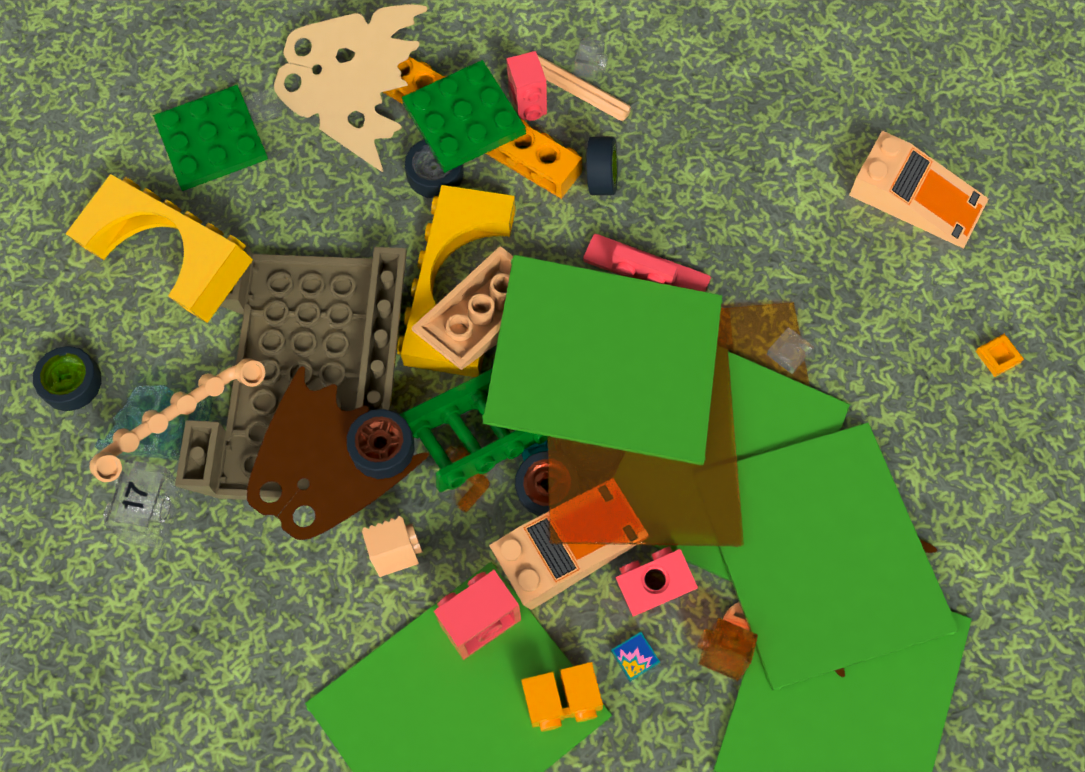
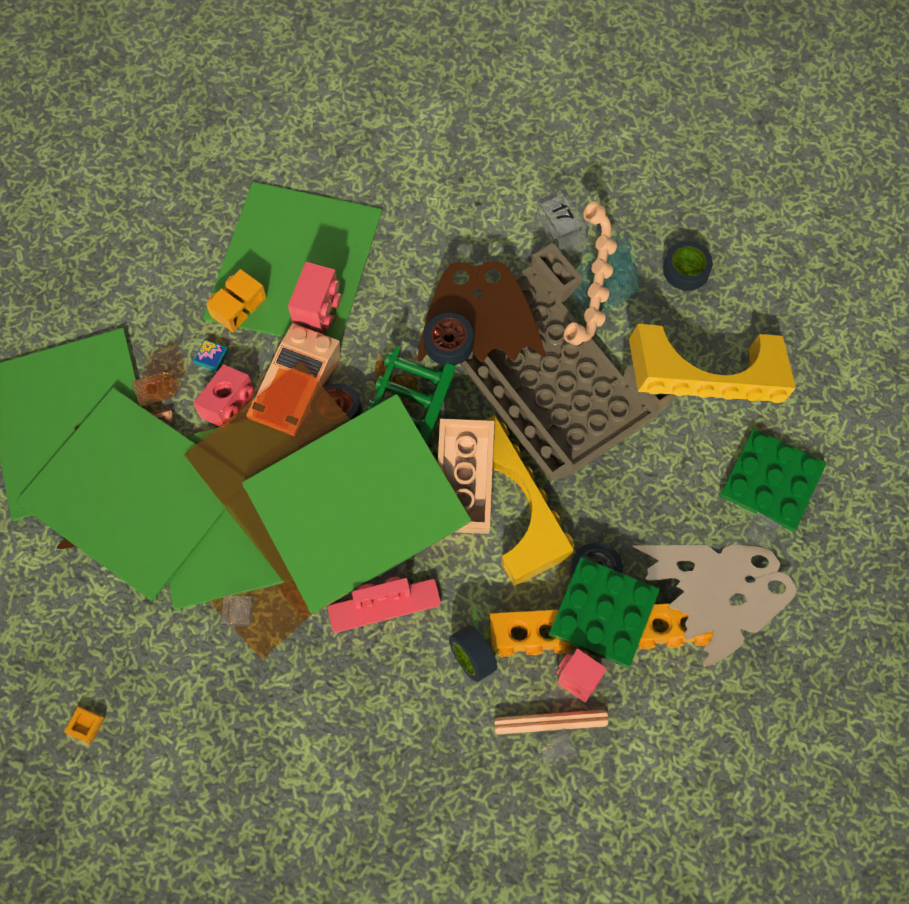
camera: 140 degrees right, 0 degrees up
(392, 546) = (398, 302): light nougat brick -> none
(918, 190) = (219, 822): slope -> none

